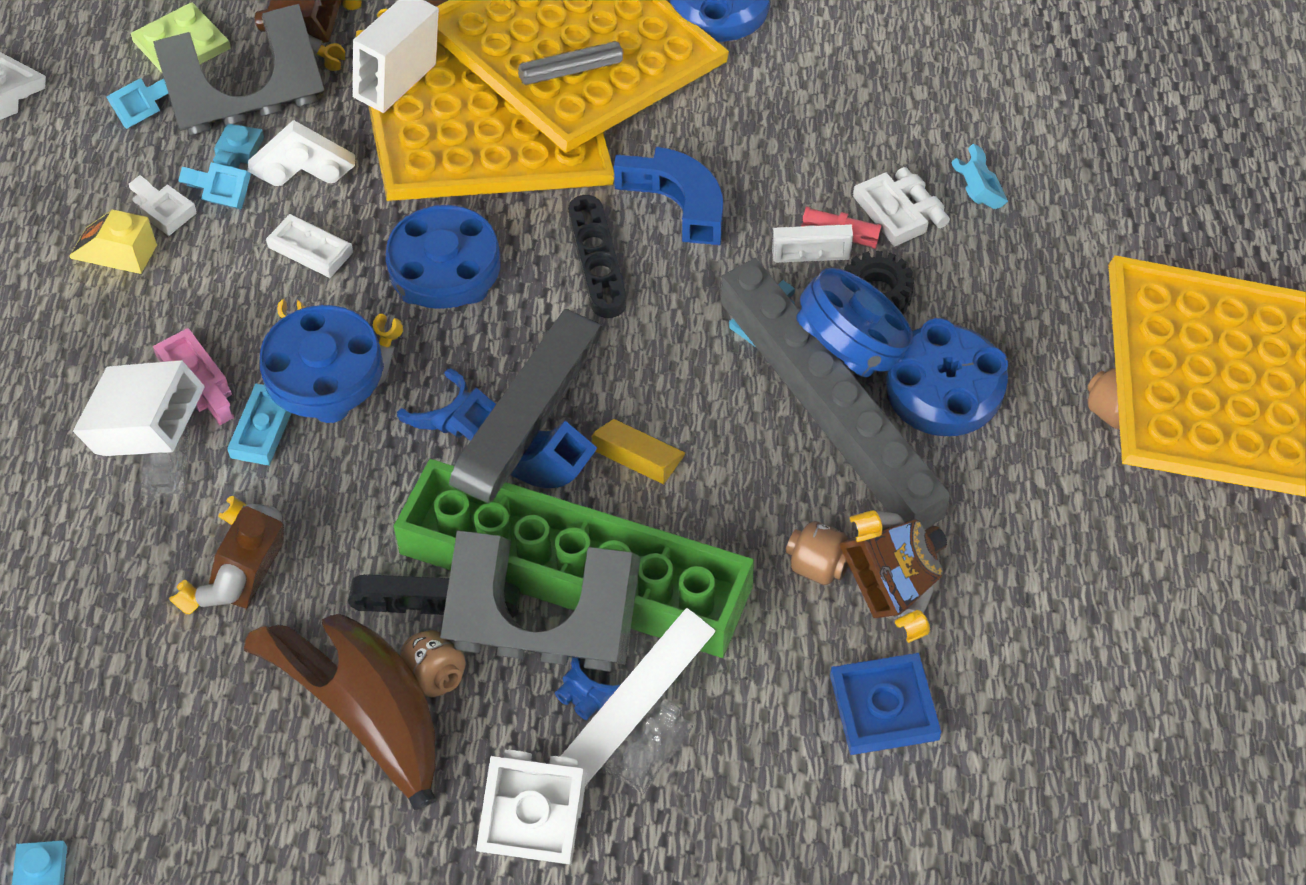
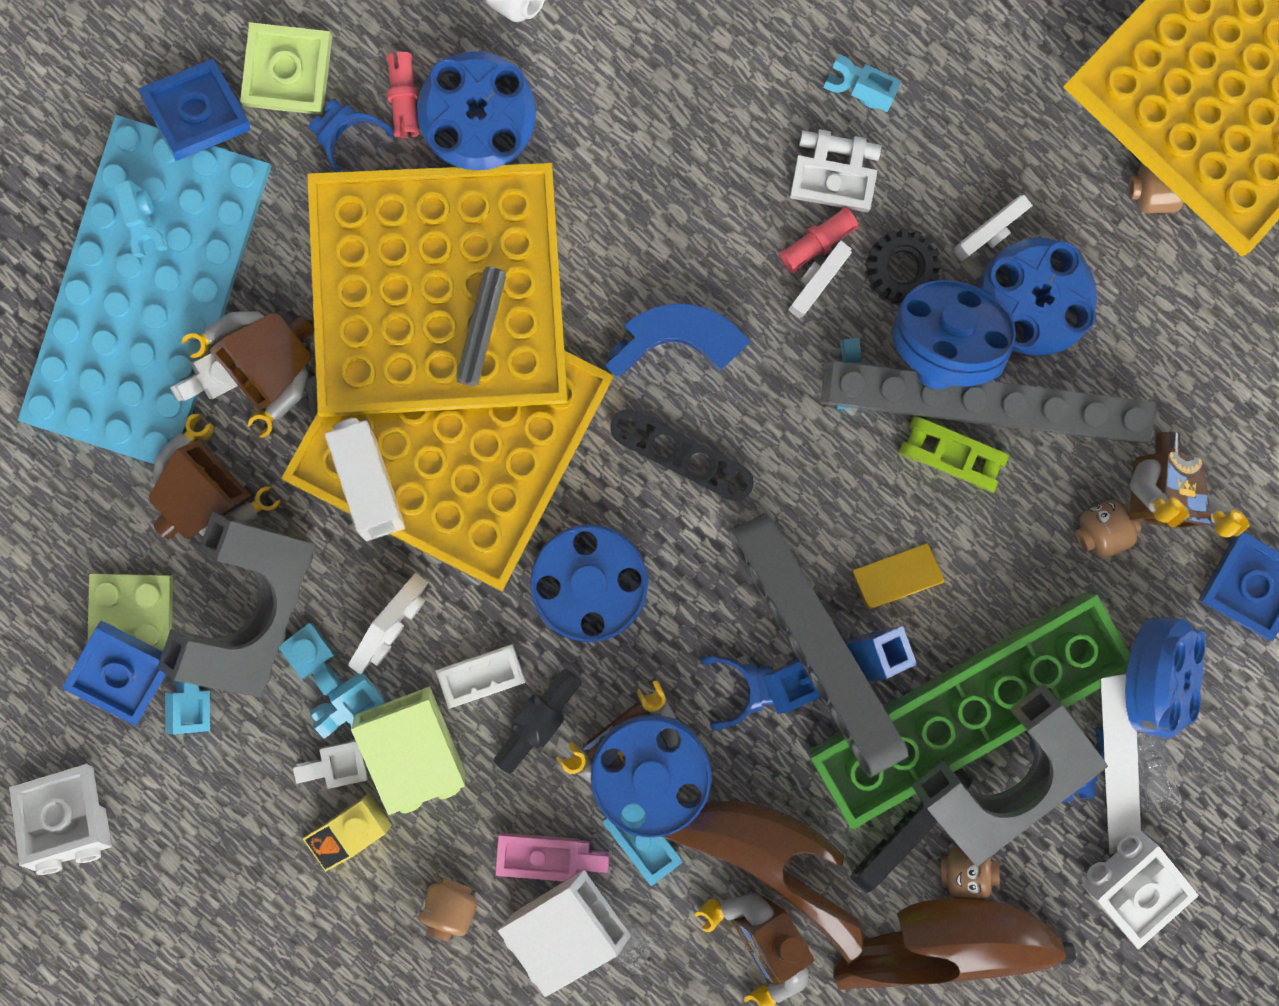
camera: 55 degrees left, 35 degrees up
(99, 335) = (447, 909): none -> medium nougat head
(126, 47) = (116, 673): none -> blue plate
(211, 231) = (409, 751): none -> yellowish green brick
(306, 288) = (537, 721): none -> black axle
(327, 496) = (762, 844): none -> reddish brown piece
(734, 658) = (1165, 677): none -> blue piece
(772, 417) = (953, 454): none -> lime plate
(980, 317) = (994, 229): none -> white plate

